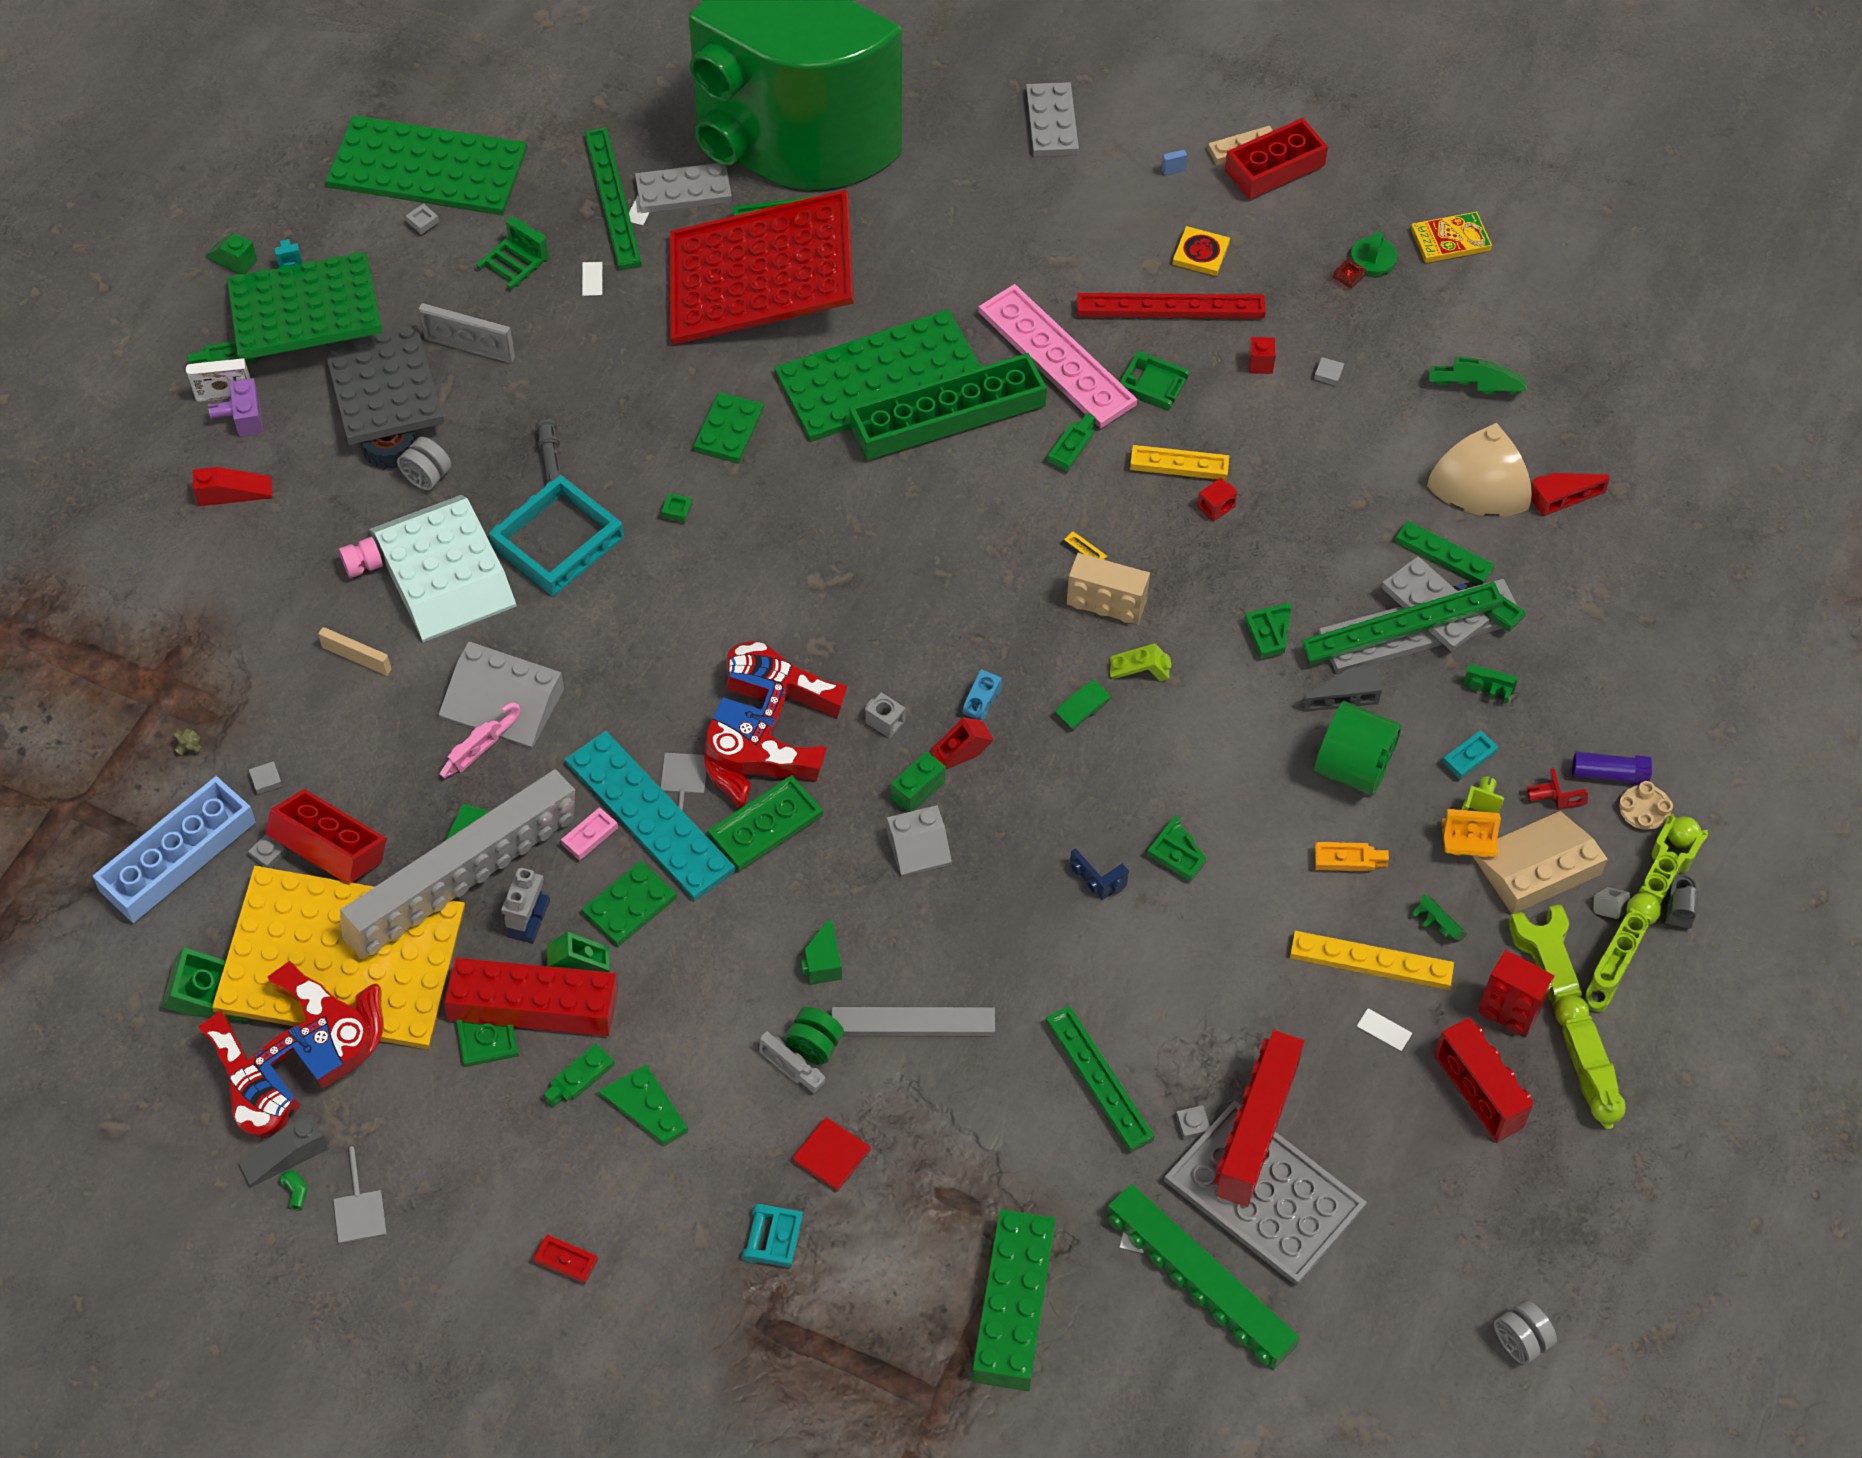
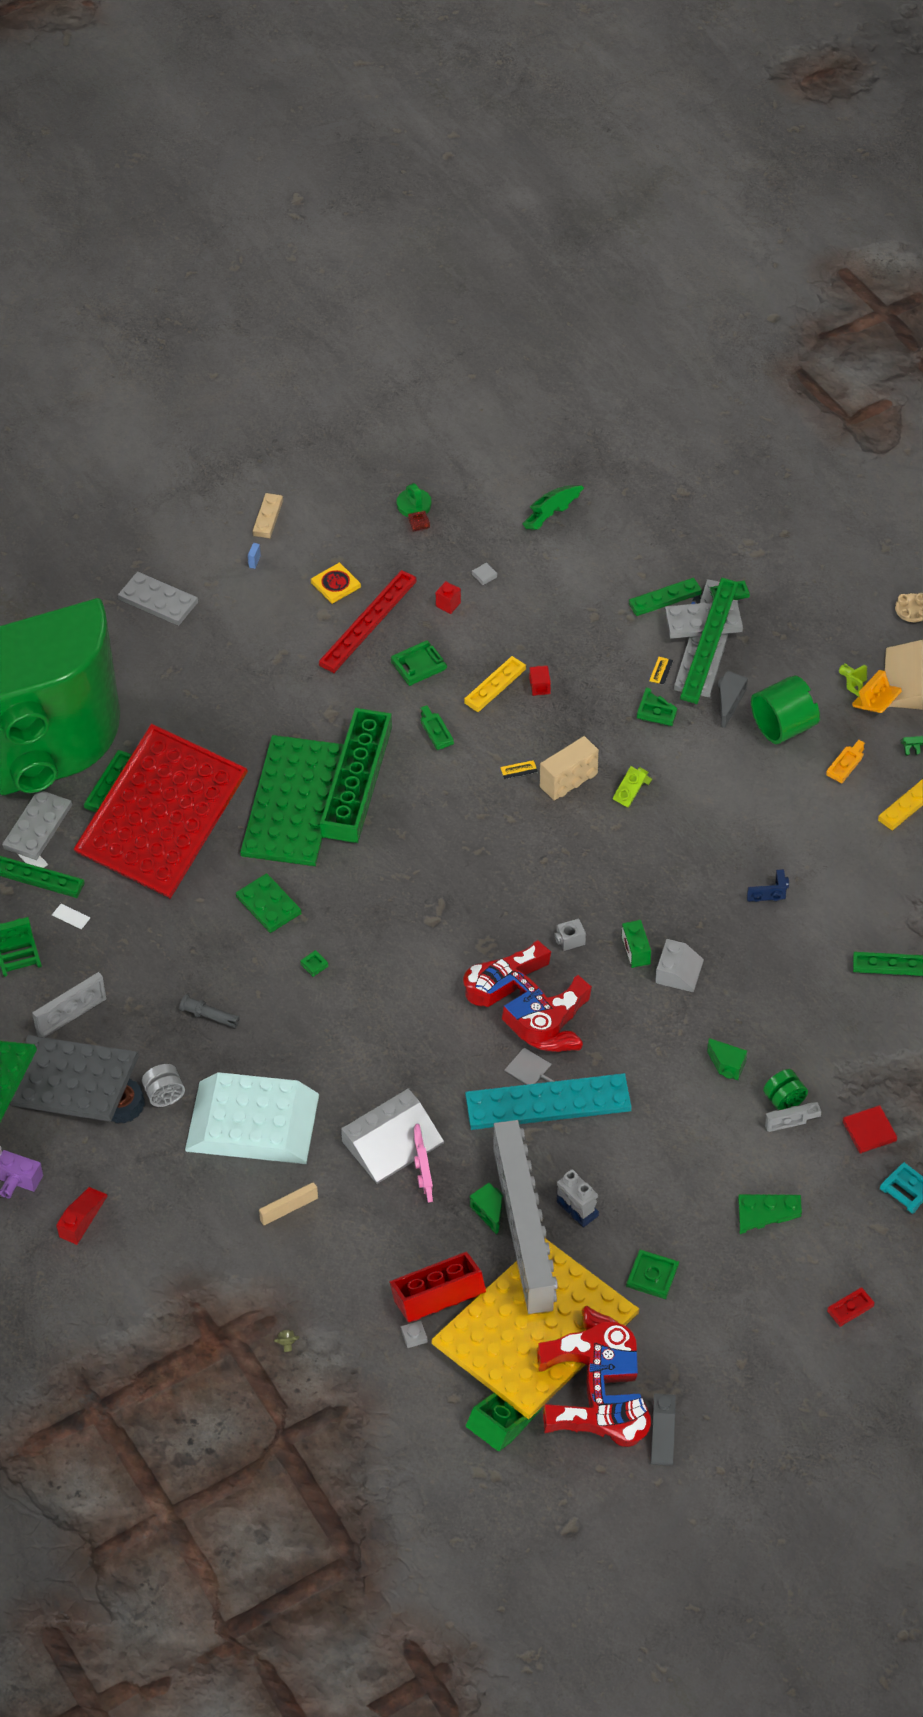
camera: 55 degrees left, 5 degrees down
(174, 849) = (377, 1384): light blue brick -> none
(265, 777) = (351, 1307): light grey tile -> none
(298, 1187) = (694, 1434): green arm -> none
(360, 557) = (211, 1162): bright pink wheel -> none
(360, 1214) = (735, 1410): light grey piece -> none
(532, 996) = (646, 1230): red brick -> none
(576, 562) = (290, 1070): teal window -> none
(578, 953) = (631, 1192): green slope -> none
(579, 1075) = (719, 1236): green hinge -> none
(589, 833) = (540, 1140): bright pink plate -> none
(629, 903) = (608, 1146): green plate -> none
(765, 823) = (603, 1040): green plate -> none
(916, 1021) = (807, 1034): light grey tile -> none
(962, 742) = (622, 905): red slope -> none
(982, 695) = (594, 876): dark azure leg -> none
(1058, 355) = (342, 699): bright pink plate -> none
(1082, 704) = (641, 830): green slope -> none
(1177, 851) = (781, 841): green wing -> none
(1276, 158) = (299, 503): red brick -> none
(1335, 607) = (661, 670): none -> sticker
(1451, 237) = (431, 458): tile -> none
(1470, 755) = (818, 665): teal plate -> none
(1483, 475) = (633, 542): tan brick -> none
(1490, 680) = (775, 626): green plate -> none
(1552, 790) = (872, 641): red bracket -> none
(1563, 490) = (666, 515): red slope -> none
(1612, 767) = (877, 606): dark purple piece -> none

